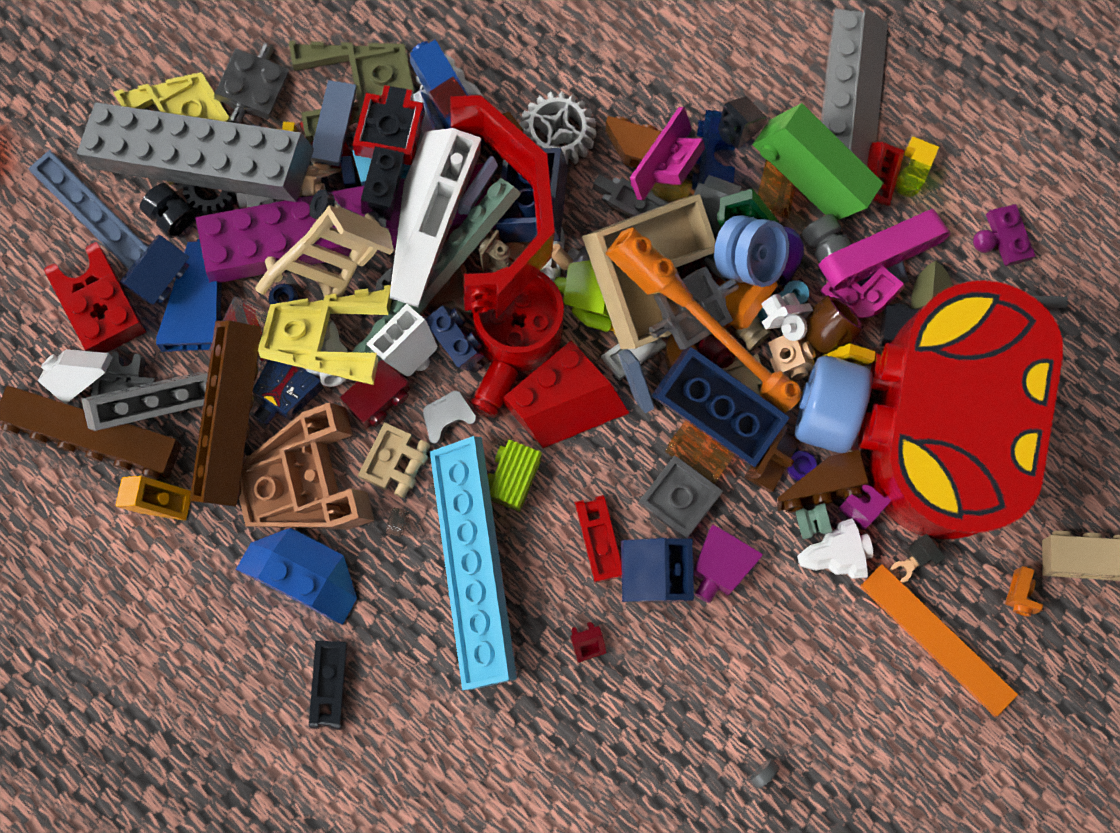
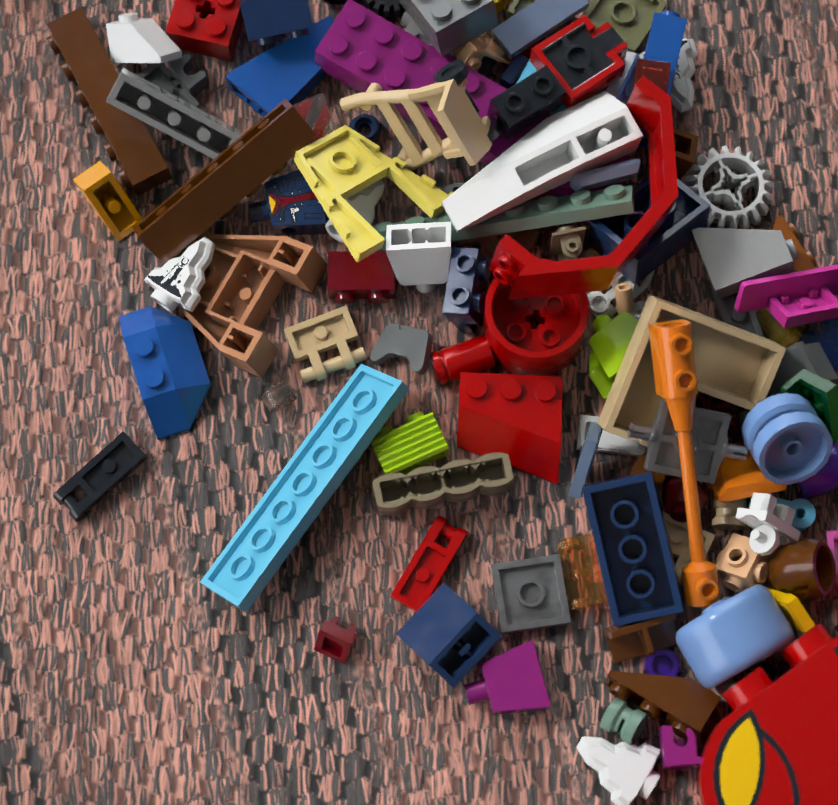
camera: 50 degrees right, 0 degrees up
(257, 503) = (182, 277): none -> white rock
(554, 485) = (453, 482): none -> dark tan brick
(610, 163) = (743, 256): none -> light grey slope

